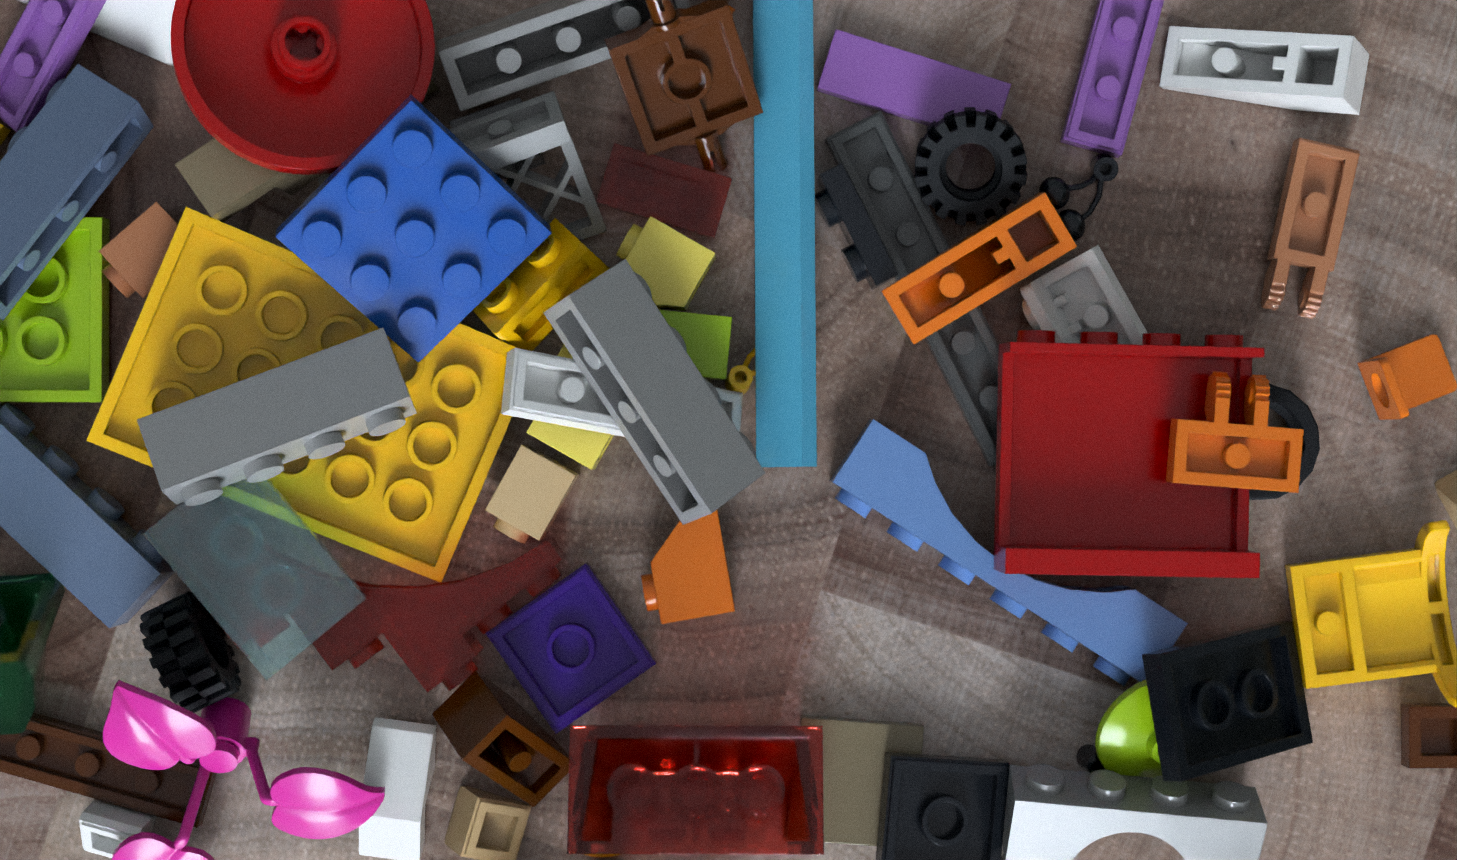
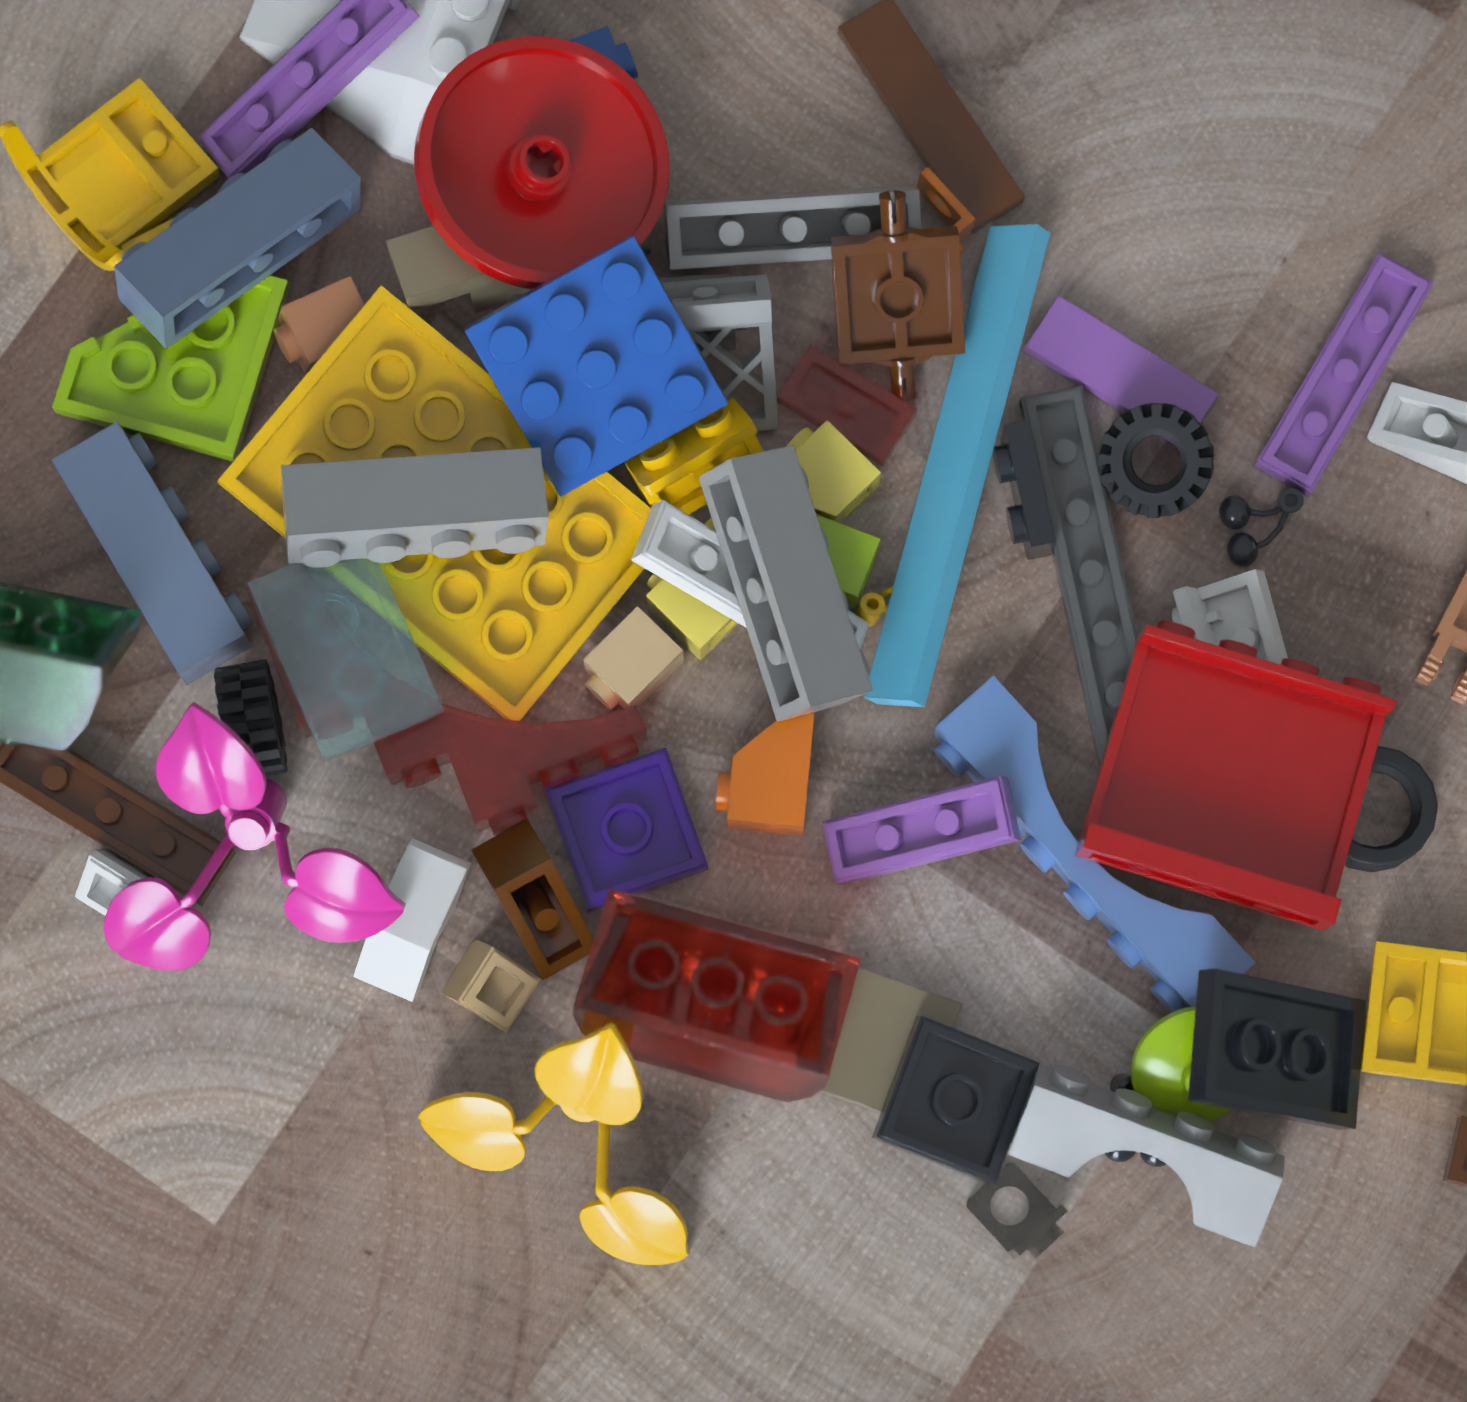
camera: 20 degrees right, 10 degrees down
(845, 580) = (921, 830): none -> medium lavender tile
(979, 267) = (1139, 557): orange slope -> none
(1233, 453) = (1341, 797): orange hinge -> none

